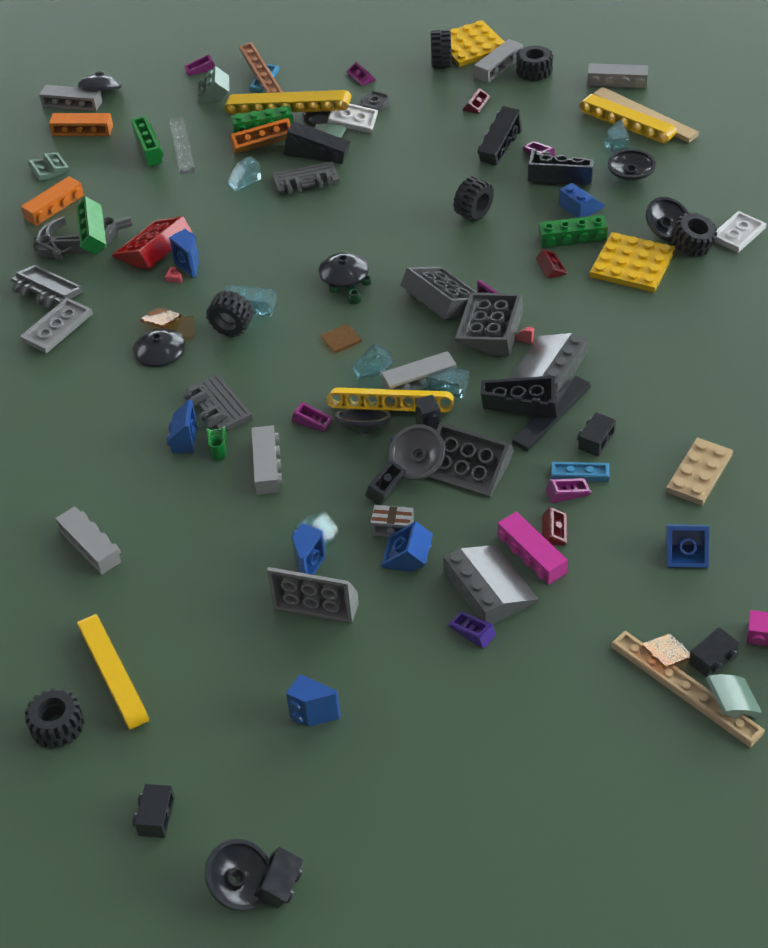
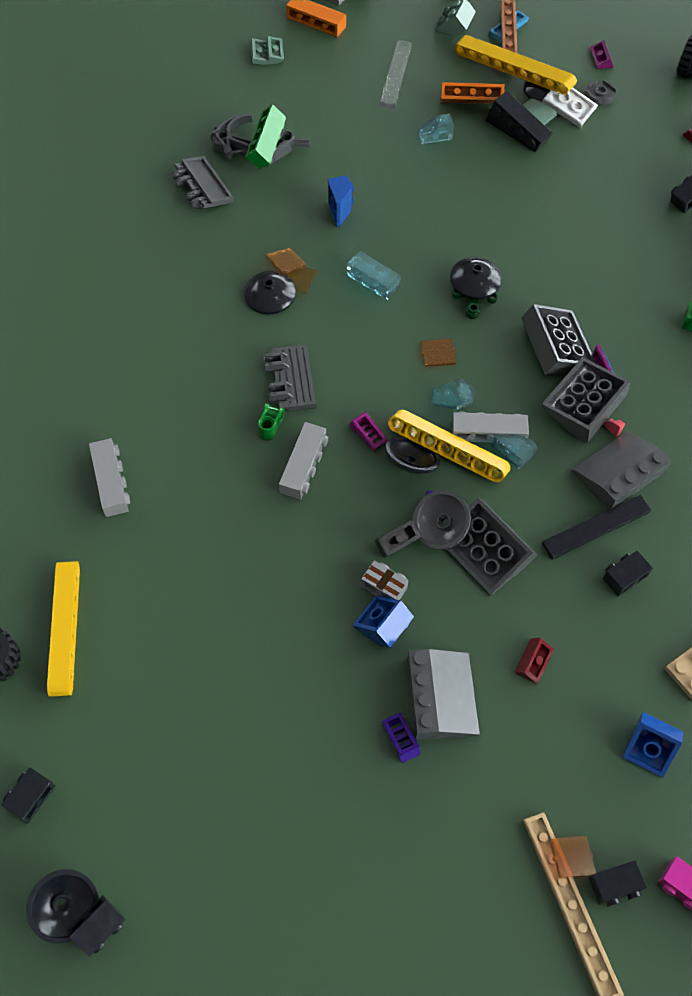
camera: 20 degrees right, 15 degrees up
(52, 200) = (251, 91): orange brick -> none
(56, 325) = (191, 230): light grey plate -> none
(147, 141) = (364, 60): green brick -> none
(151, 243) = (312, 175): red slope -> none
(173, 275) = (320, 217): coral tile -> none
(183, 429) = (245, 395): blue slope -> none
(229, 313) = (345, 286): black tyre -> none
(257, 118) = (478, 73): green brick -> none
(305, 177) = (492, 155): dark grey hinge -> none
(308, 548) = (290, 583): blue slope -> none
(312, 595) = (271, 635): light grey slope -> none
(312, 702) = (211, 753): blue slope -> none
(323, 522) = (313, 559): clear light blue slope -> none
(428, 411) = (472, 482): black brick -> none
(473, 198) = (638, 248): black tyre -> none
(521, 395) = (574, 498): black wedge -> none
(532, 548) = (500, 675): dark pink brick -> none
(550, 264) = (680, 352): dark red slope -> none
(557, 494) = (555, 622): magenta slope -> none
(575, 470) = (591, 607): dark azure tile -> none
(733, 695) = (611, 944): slope -> none

